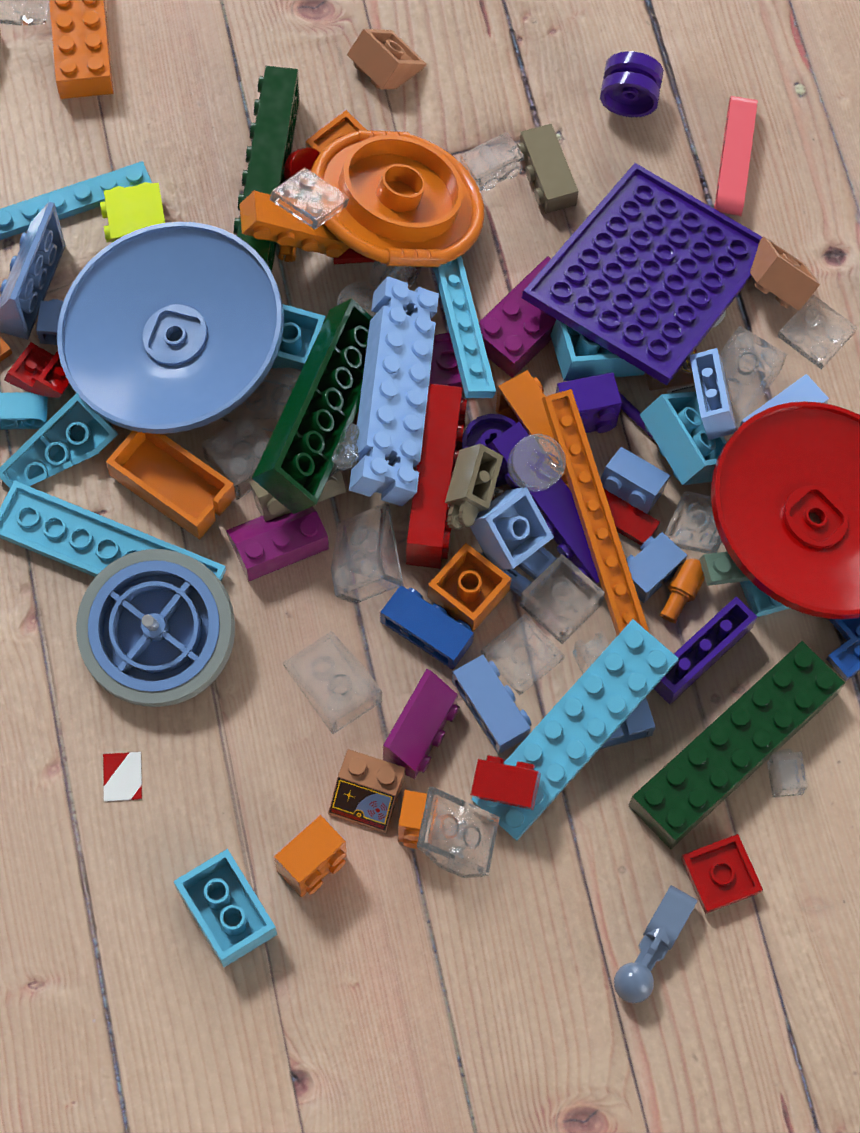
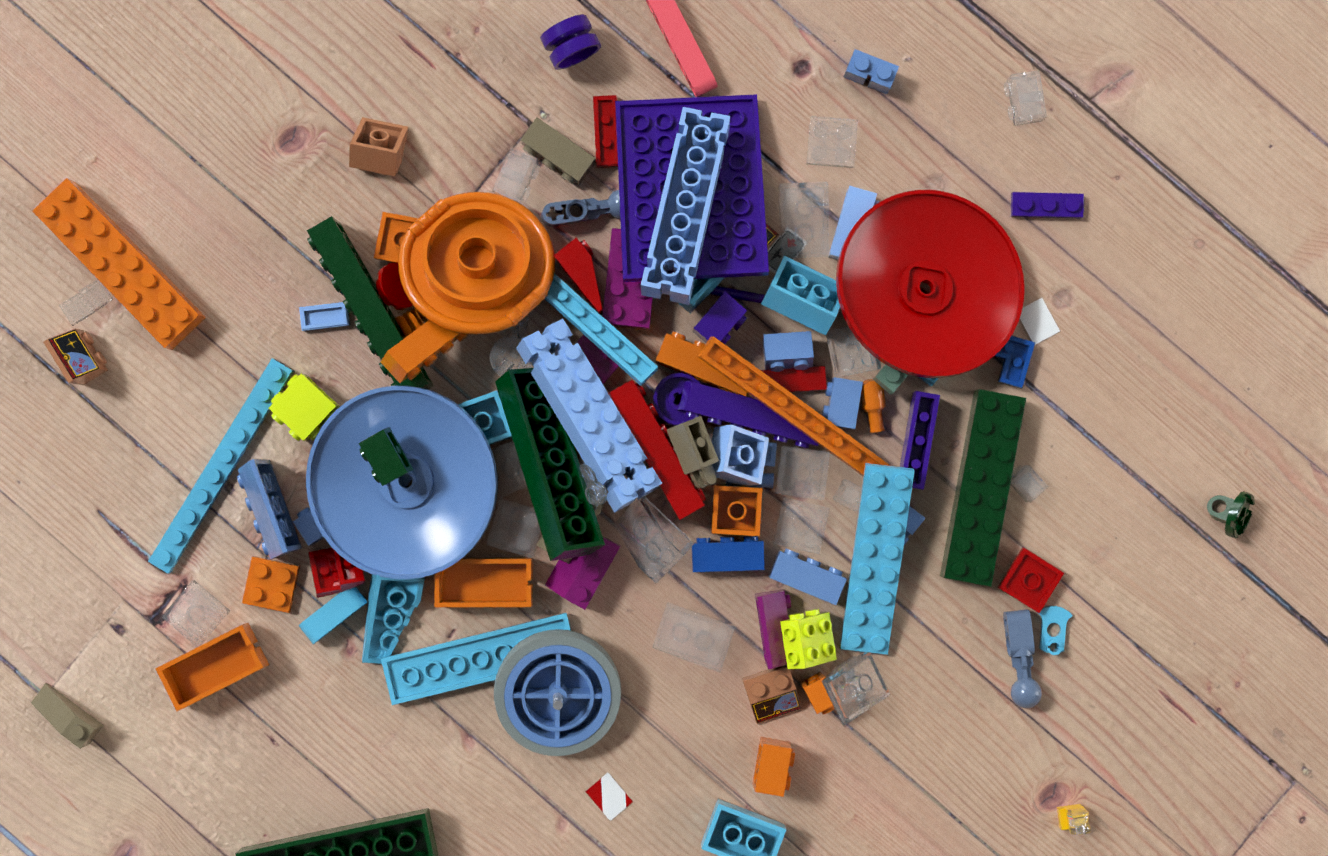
camera: 35 degrees left, 20 degrees up
(174, 285) = (385, 456): none -> dark green brick
(219, 161) = (324, 316): none -> light blue tile
(309, 198) = (426, 323): clear plate -> none
(445, 756) = (808, 639): none -> neon yellow brick
(490, 265) = (579, 266): none -> red slope
(506, 783) = (860, 630): red brick -> none
(536, 462) = (726, 403): clear head -> none
(538, 234) = (590, 209): none -> sand blue beam
(604, 181) = (605, 131): none -> red tile
(631, 269) = (685, 206): none -> light blue brick
(712, 394) = (801, 255): light blue brick -> none
(719, 929) = (1056, 615): none -> medium azure piece
(782, 275) = (781, 117): nougat slope -> none

